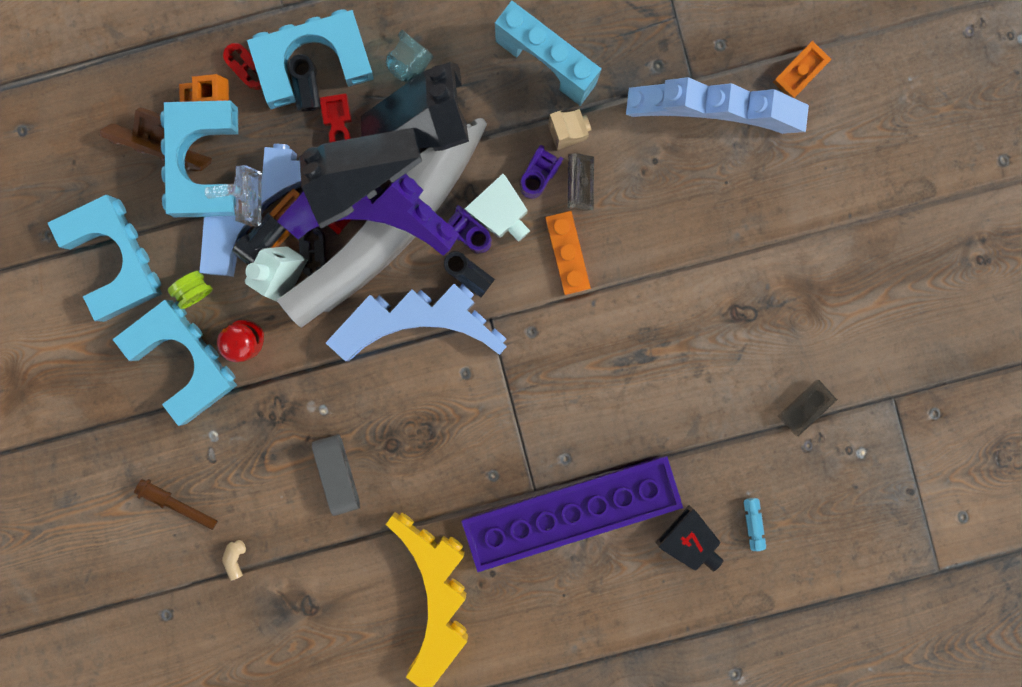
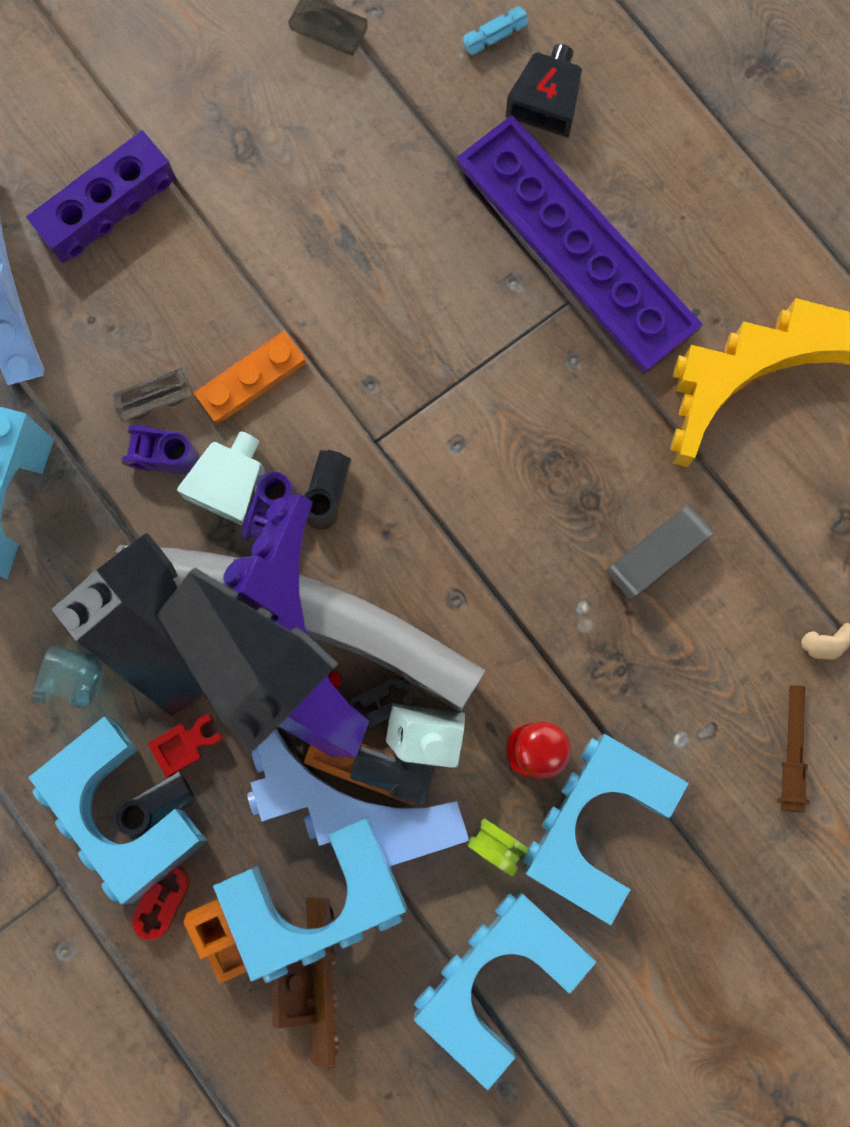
camera: 115 degrees left, 10 degrees down
(247, 193) = (330, 813): clear plate -> none
(374, 320) = (384, 490): light blue arch -> none
(568, 128) = (88, 435): tan arch -> none
(733, 158) = (104, 179): none -> dark purple brick

